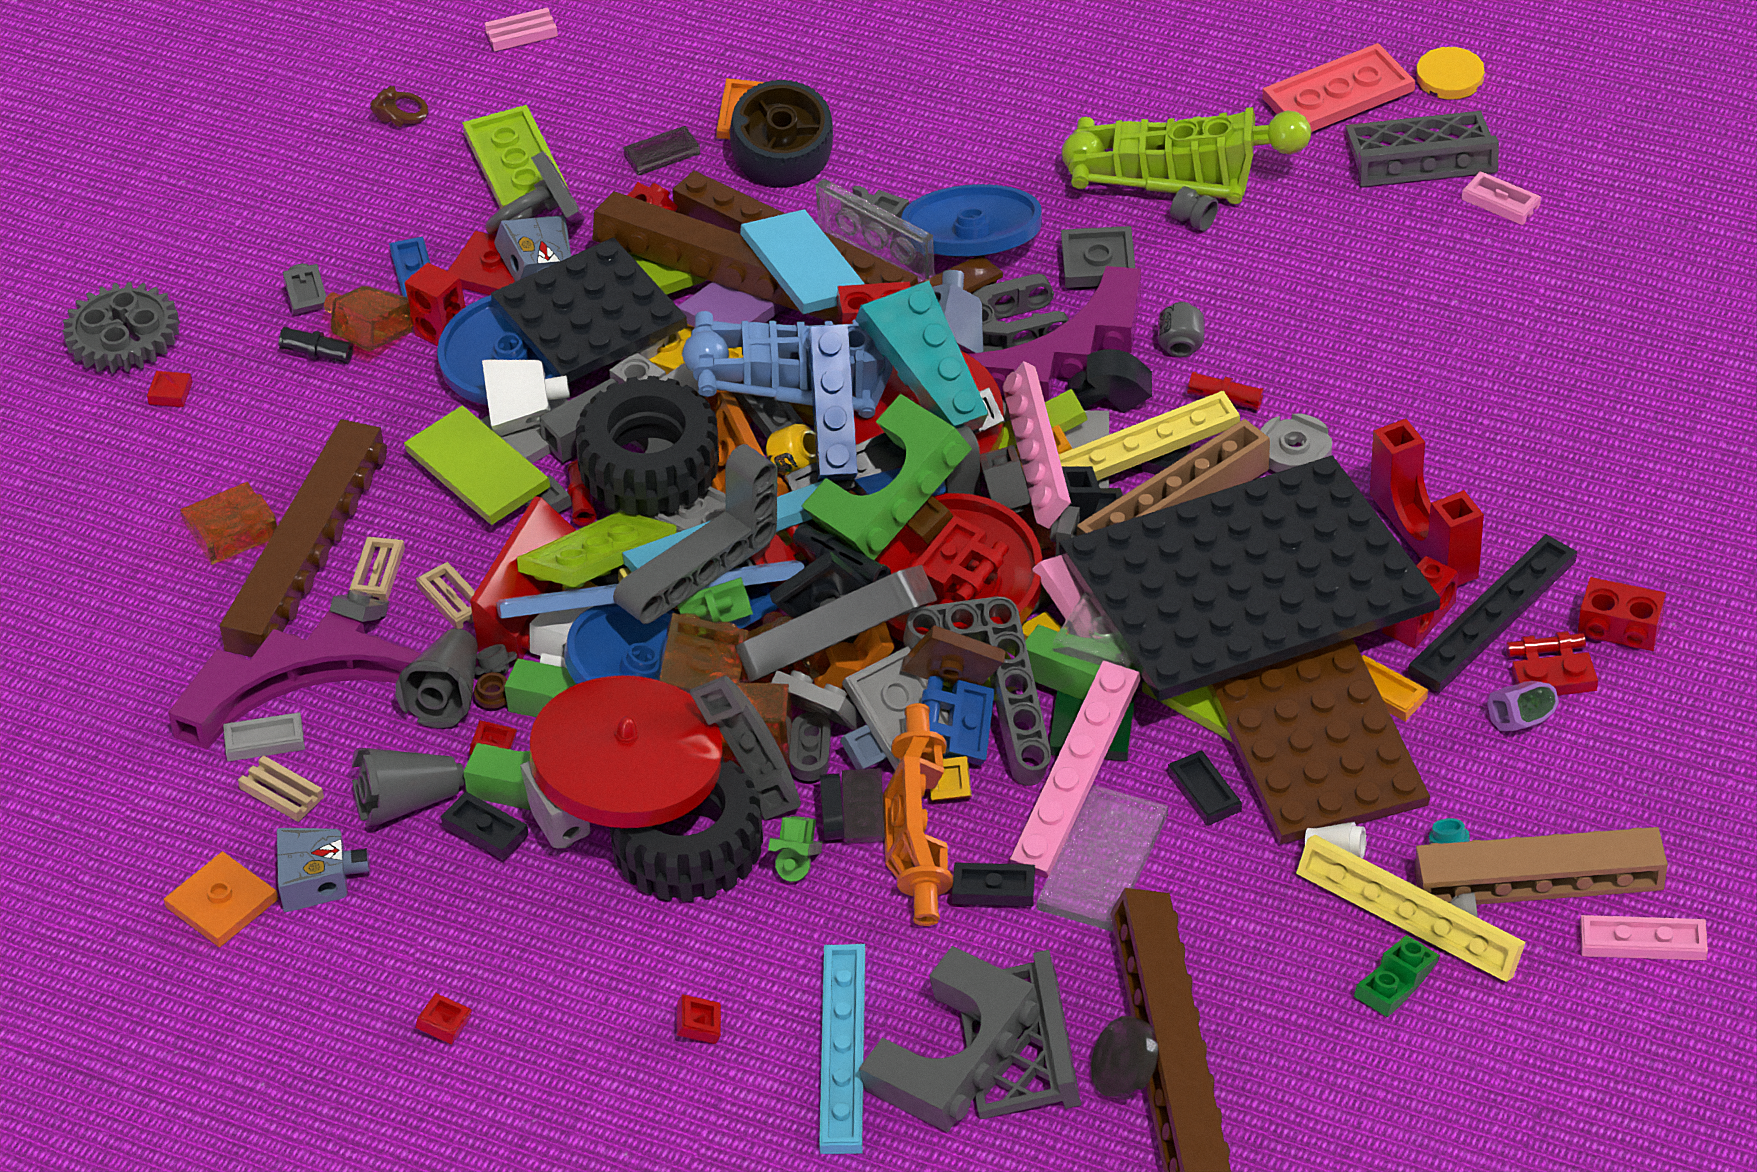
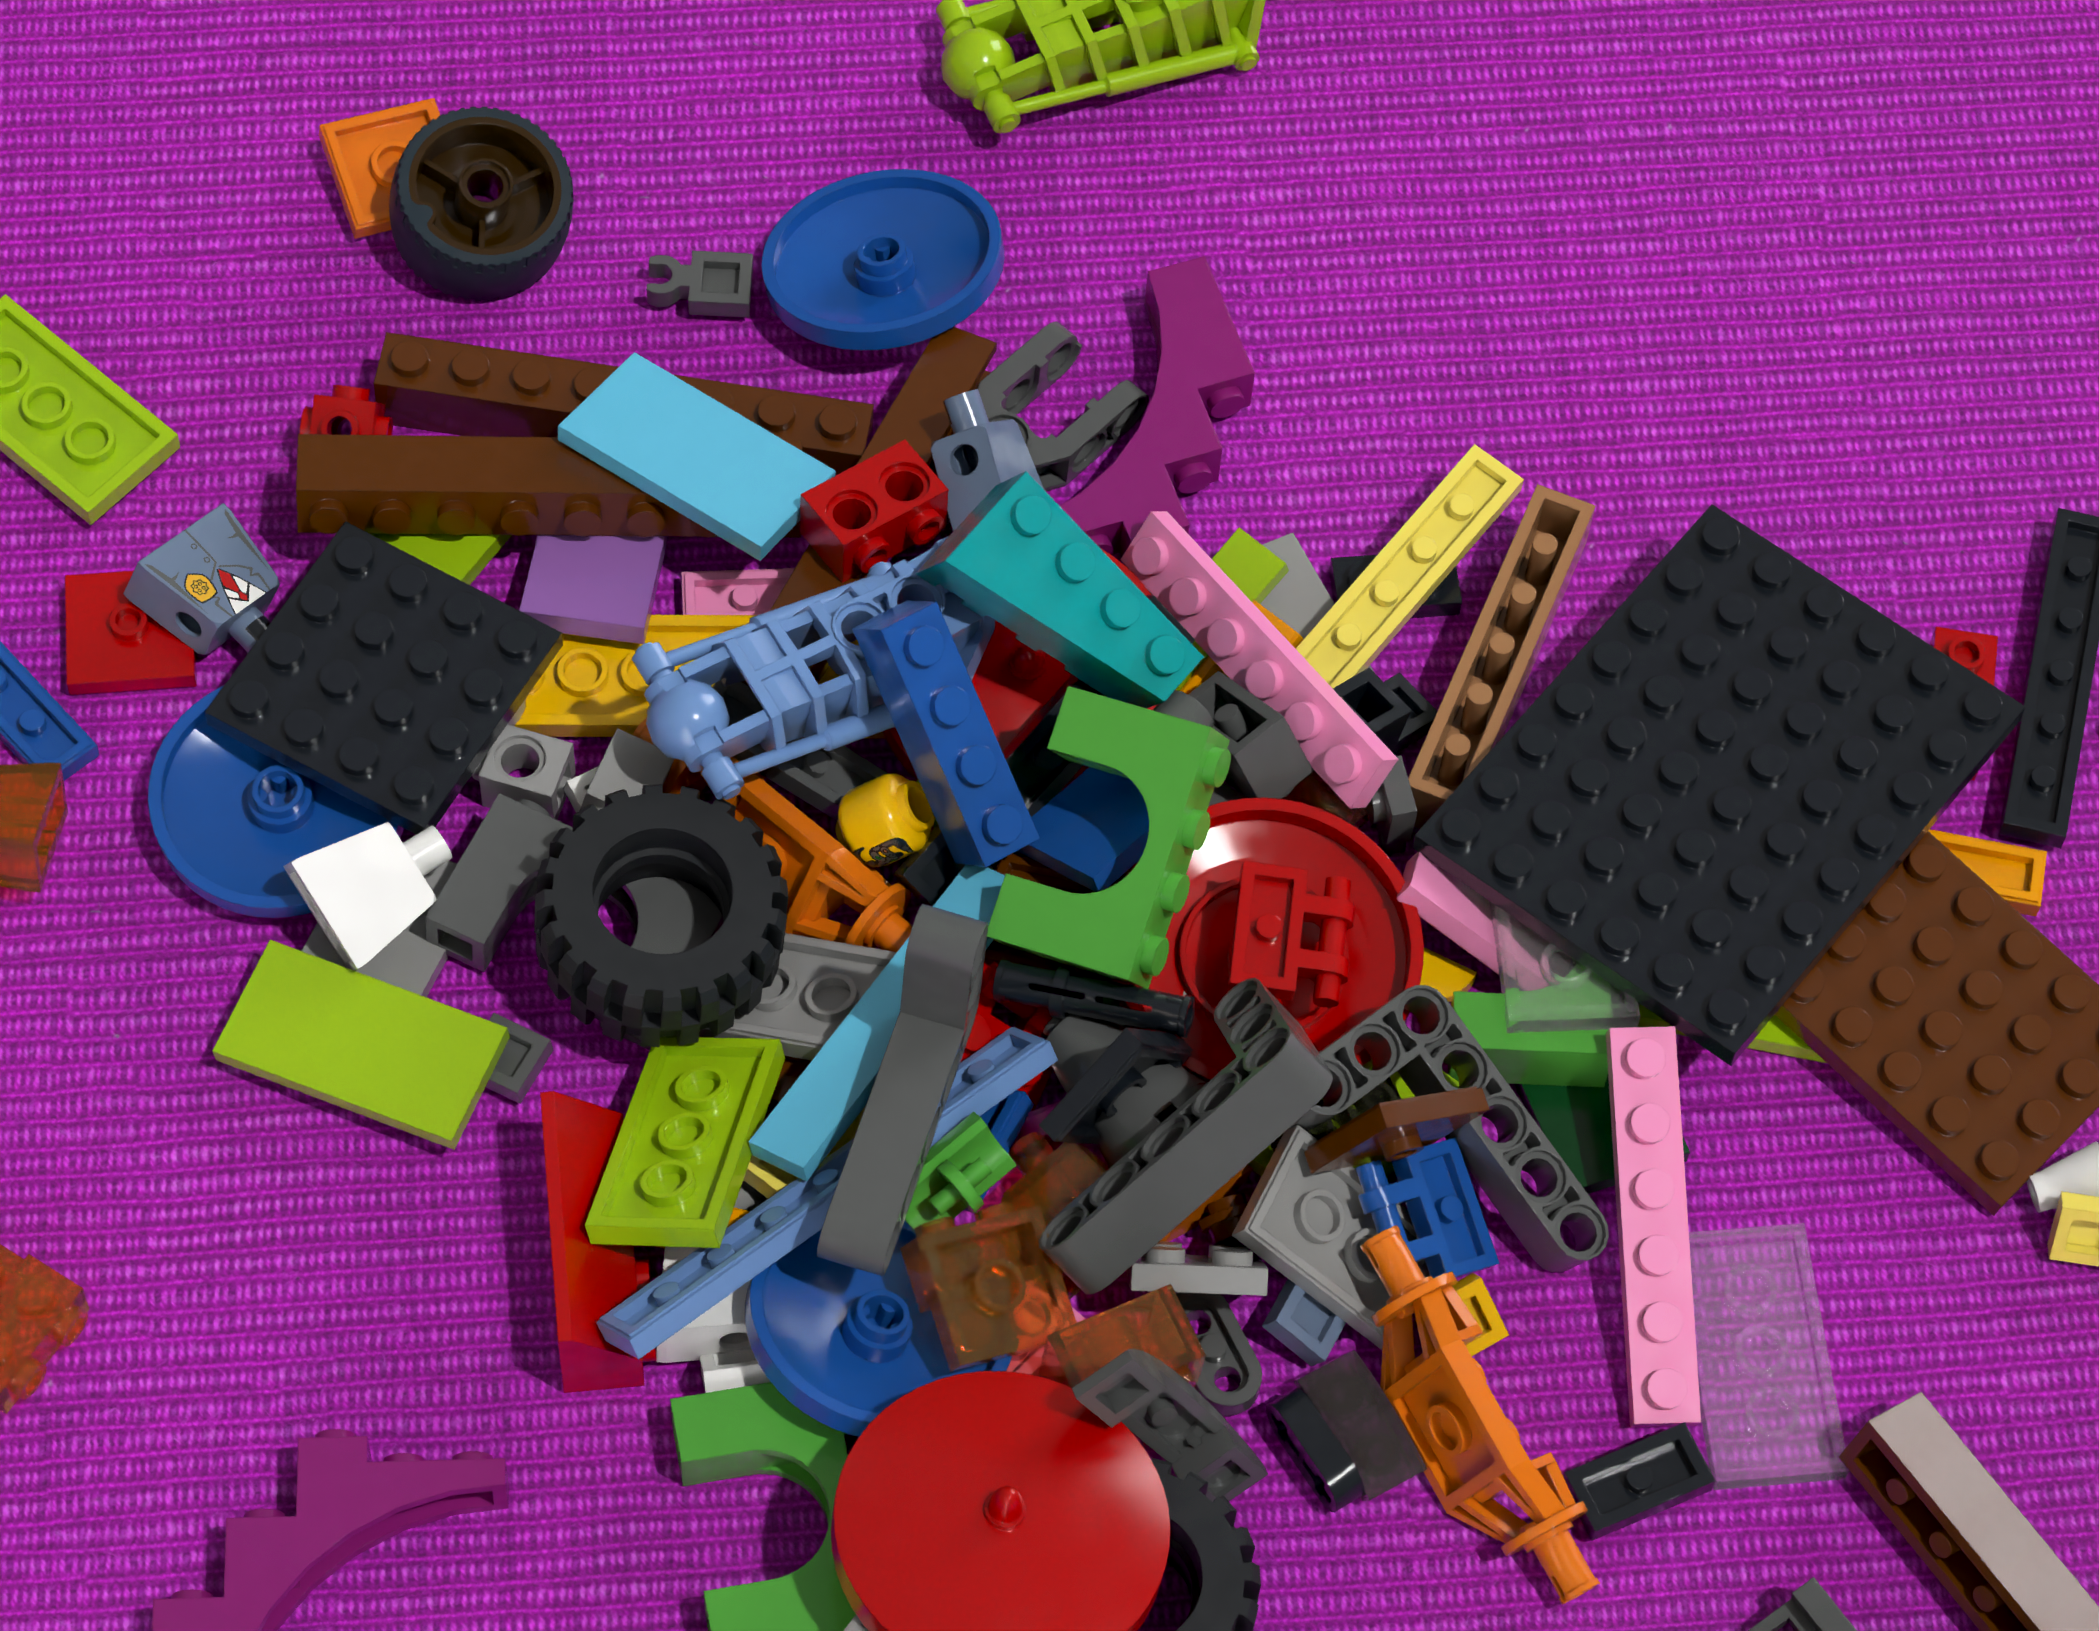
camera: 35 degrees left, 15 degrees up
(304, 537) = (152, 1310): reddish brown brick -> none
(359, 606) = (340, 1407): dark grey plate -> none
(391, 570) = (317, 1357): tan tile -> none
(433, 300) = (106, 760): red brick -> none
(442, 682) = (562, 1485): dark grey cone -> none
(455, 618) = (478, 1343): tan tile -> none
(490, 690) = (644, 1447): reddish brown plate -> none
(493, 735) = (704, 1561): red tile -> none
(494, 660) = (615, 1408): dark grey plate -> none
(549, 194) = (170, 475): dark grey tile -> none
(580, 497) = (554, 1021): red pin -> none
(661, 150) = (278, 297): clear smoke tile -> none
(796, 846) = (1313, 1553): bright green hips -> none
(874, 230) = (753, 345): clear tile -> none
(929, 519) = (1211, 881): reddish brown plate -> none
(1091, 250) = (1102, 247): dark grey plate -> none
(1114, 376) = (1271, 475): black brick -> none
(1181, 329) = (1315, 340): dark grey head -> none
(1193, 208) = (1202, 105): dark grey wheel -> none
(1204, 788) = (1830, 1163): black tile -> none
(1237, 393) = (1444, 427): red pin -> none
(1302, 429) = (1616, 456): light grey plate -> none
(1440, 529) = (1820, 520): red arch -> none

